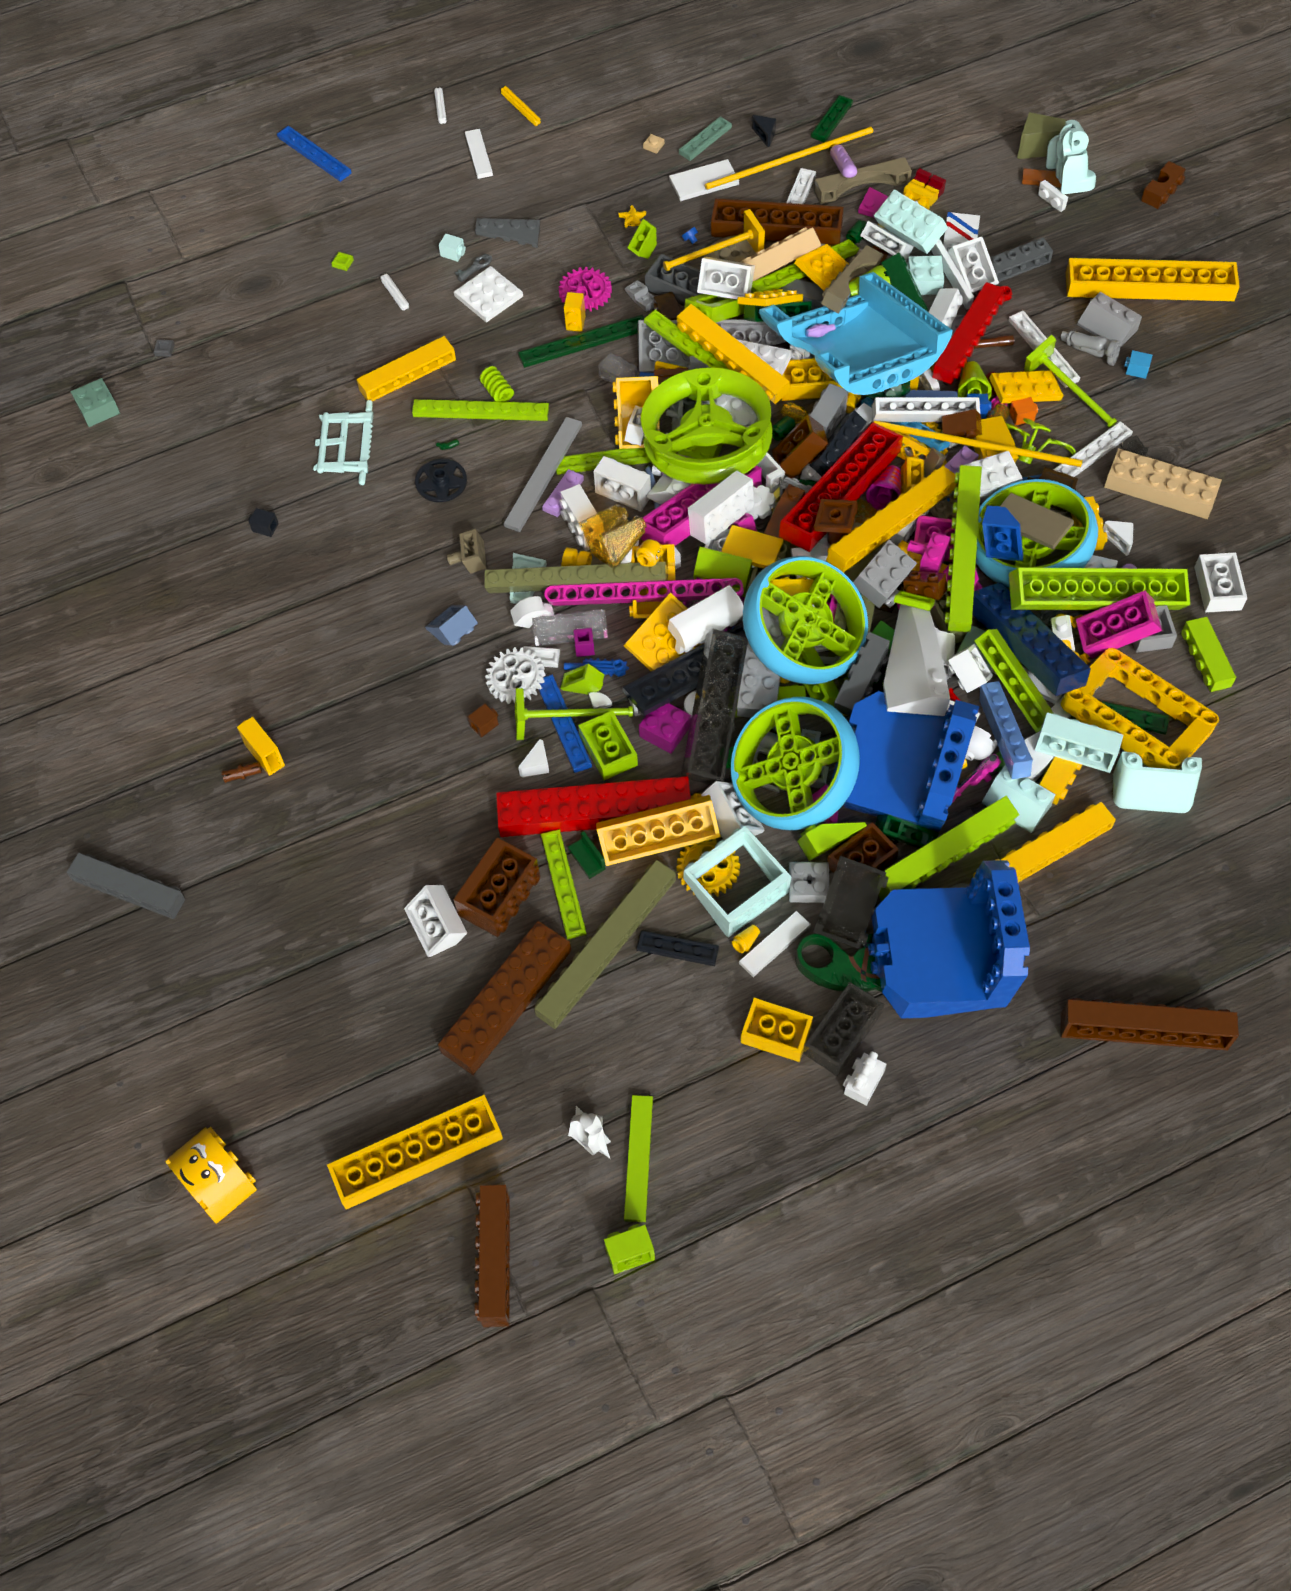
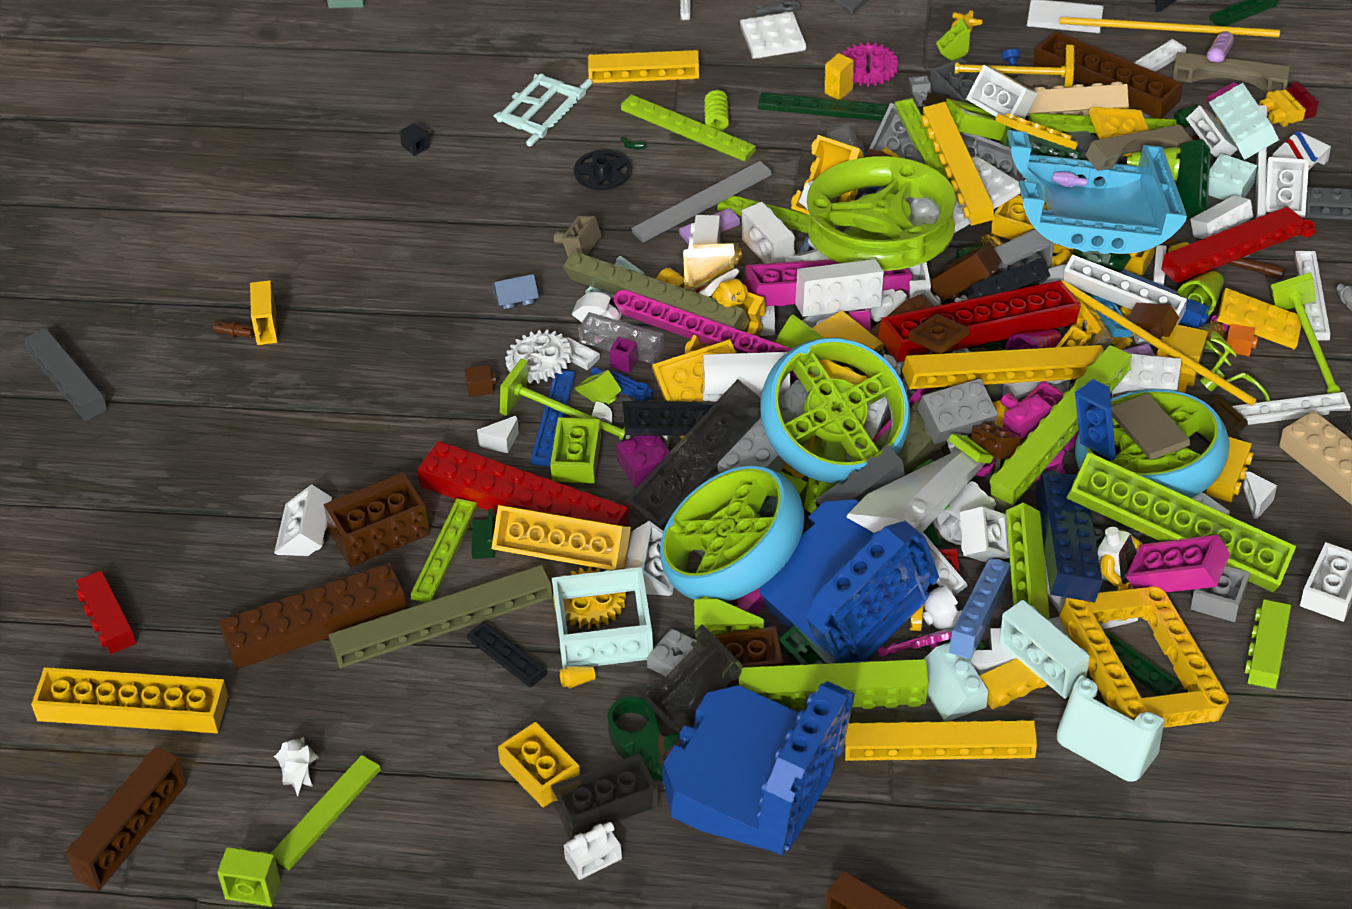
camera: 30 degrees right, 15 degrees down
(331, 1084) = (105, 612): none -> red brick
(774, 944) = (597, 694): white tile -> none

